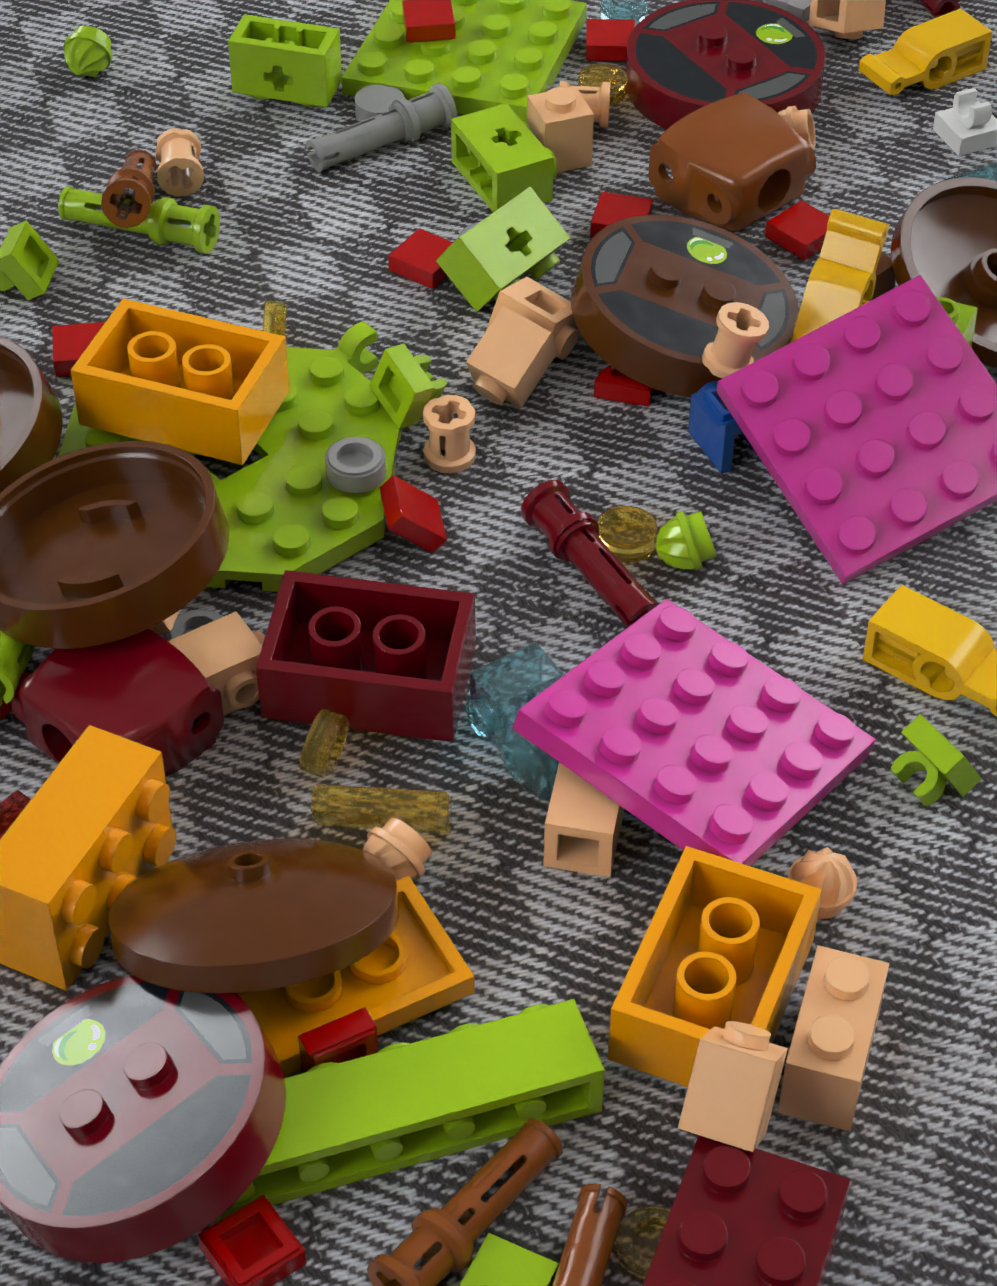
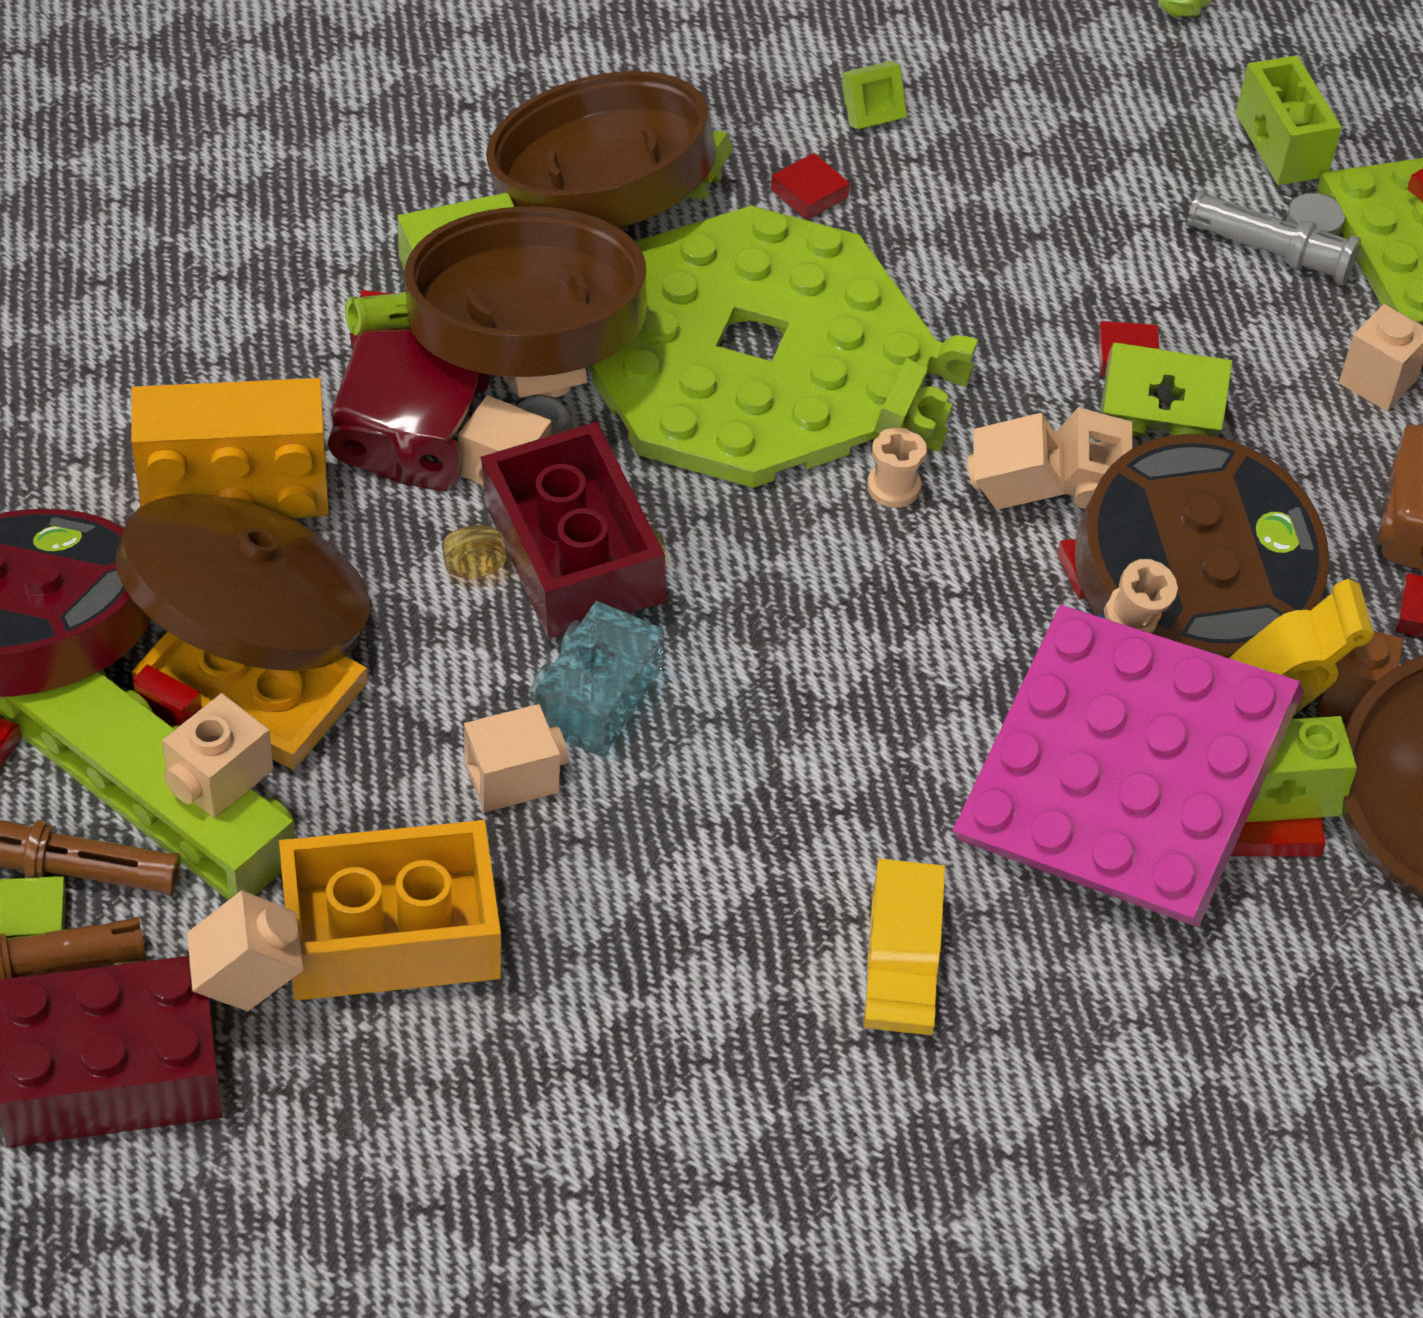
camera: 55 degrees right, 5 degrees up
(135, 179) = (998, 106): dark orange pin -> none
(161, 224) = (1006, 151): lime pin -> none
(179, 162) = (1093, 124): light nougat bush -> none
(181, 380) = (767, 252): light orange brick -> none
(274, 317) = (931, 289): clear yellow tile -> none
(355, 464) = (787, 417): light grey tile -> none
(375, 806) = (427, 620): clear yellow tile -> none
(399, 848) = (389, 651): light nougat plate -> none
(412, 514) = (778, 488): red tile -> none
(481, 1012) = (217, 756): none -> light nougat brick
(501, 156) = (1306, 337): lime brick -> none
(576, 539) = (797, 687): dark red pin -> none
(616, 207) = (1318, 463): red tile -> none
(628, 532) = (887, 650): clear yellow tile -> none
(685, 542) = (901, 694): lime plate -> none
(695, 735) = (644, 790): dark pink plate -> none
(831, 874) = (563, 957): light nougat plate -> none
(833, 1038) = (385, 1023): light nougat brick -> none
(936, 757) = (764, 985): lime tile -> none

